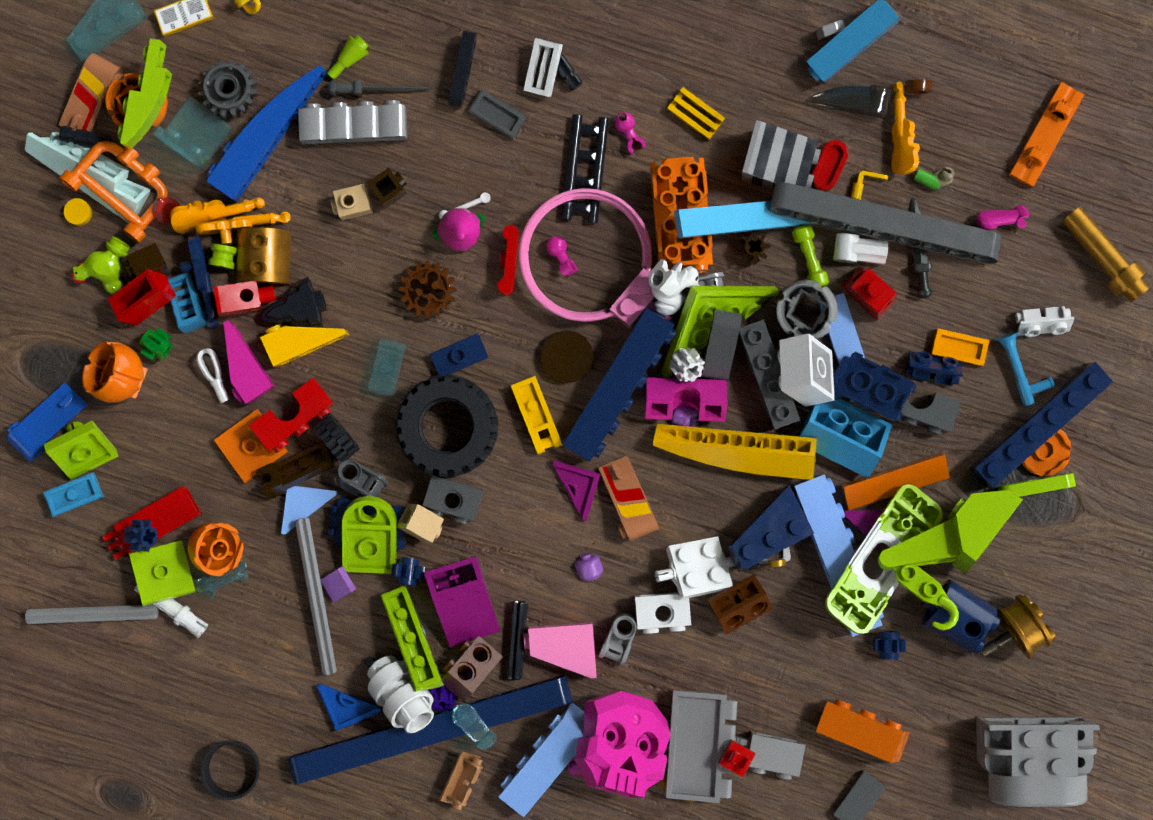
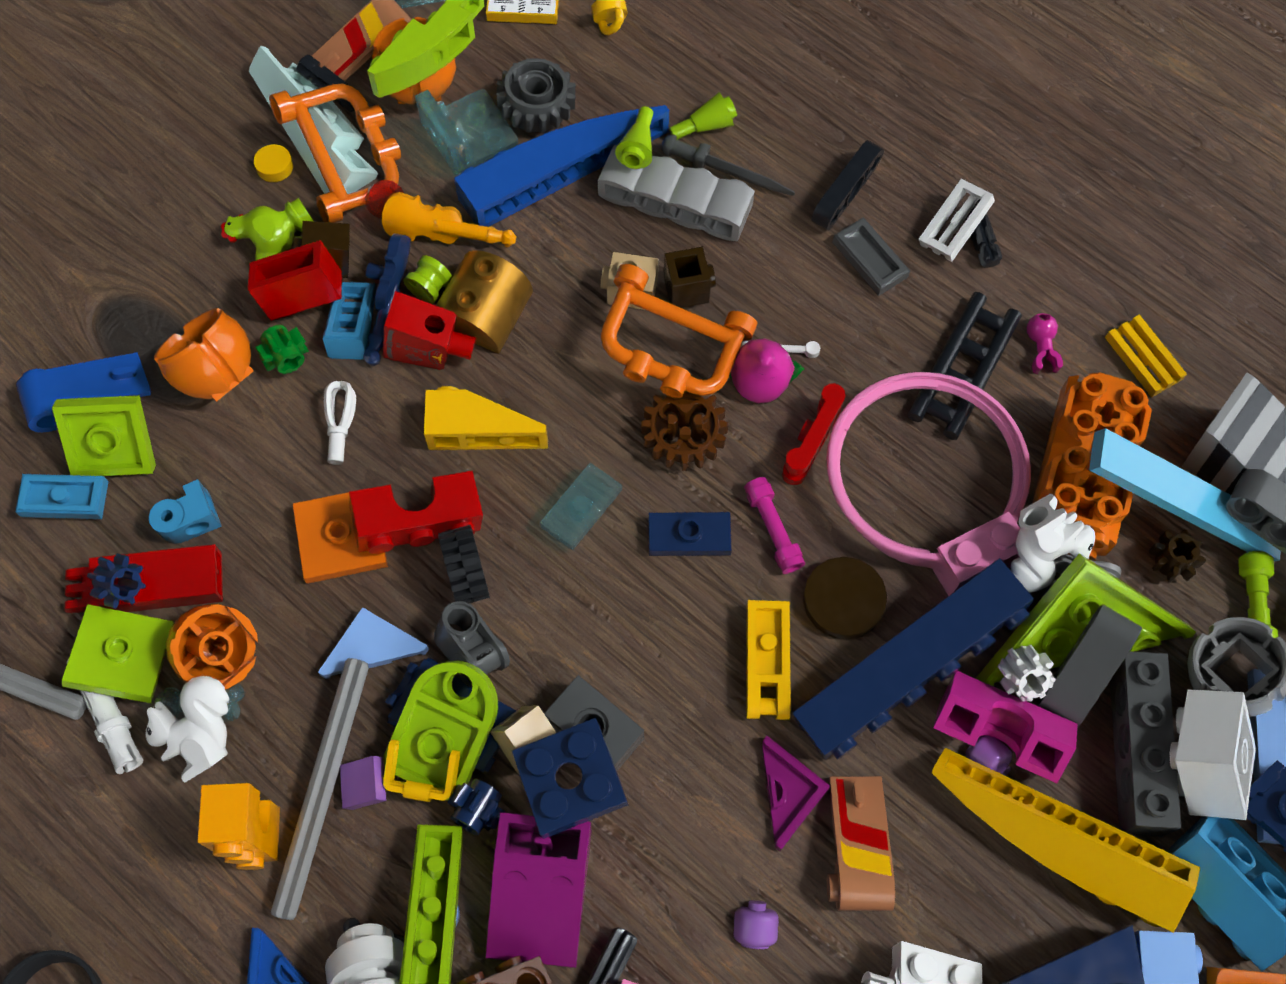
camera: 15 degrees right, 20 degrees down
(155, 475) = (185, 517): none -> dark azure leg
(225, 227) = (446, 246): light orange piece -> none
(234, 598) = (197, 736): none -> white animal
(245, 370) = (383, 428): dark pink slope -> none
(286, 641) = (239, 825): none -> light orange arch
(294, 470) = (381, 589): dark brown plate -> none
(299, 307) = (496, 377): black rock -> none
(315, 111) = (636, 147): none -> lime cone
(370, 576) = (418, 790): none -> yellow piece
(385, 266) = (639, 364): none -> orange bar
(411, 435) = (640, 564): black tyre -> none
(472, 538) = (561, 808): none -> dark blue piece
(491, 312) = (788, 555): none -> dark pink bar
(556, 247) = (888, 446): dark pink arm -> none

